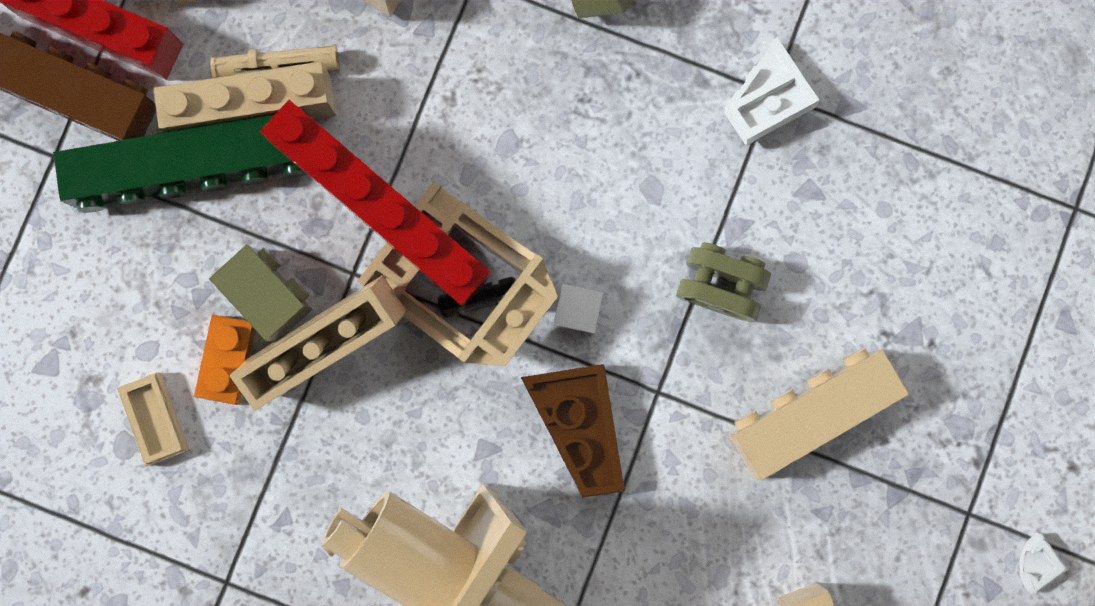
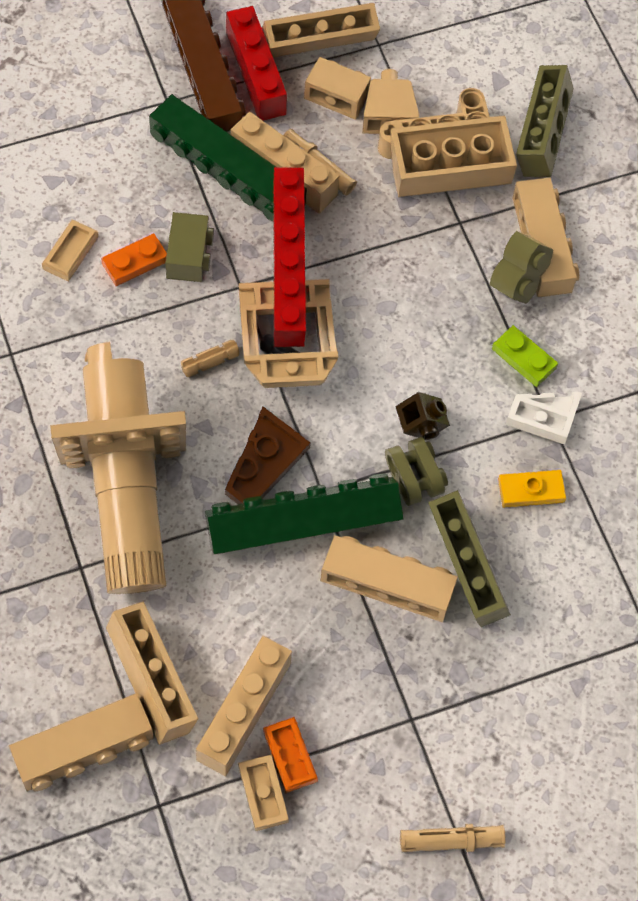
camera: 45 degrees right, 20 degrees down
(318, 343) = (188, 286): tan brick -> none
(413, 380) = (210, 358): none -> tan axle
(578, 309) = (329, 410): white tile -> none
(674, 224) = (422, 416): none -> dark brown brick
(681, 444) = (303, 514): none -> dark green brick
(684, 55) = (524, 356): none -> lime plate
(834, 182) = (531, 488): none -> yellow plate
(870, 320) = (469, 559): none -> olive brick
(1039, 564) = (419, 781): white tile -> none

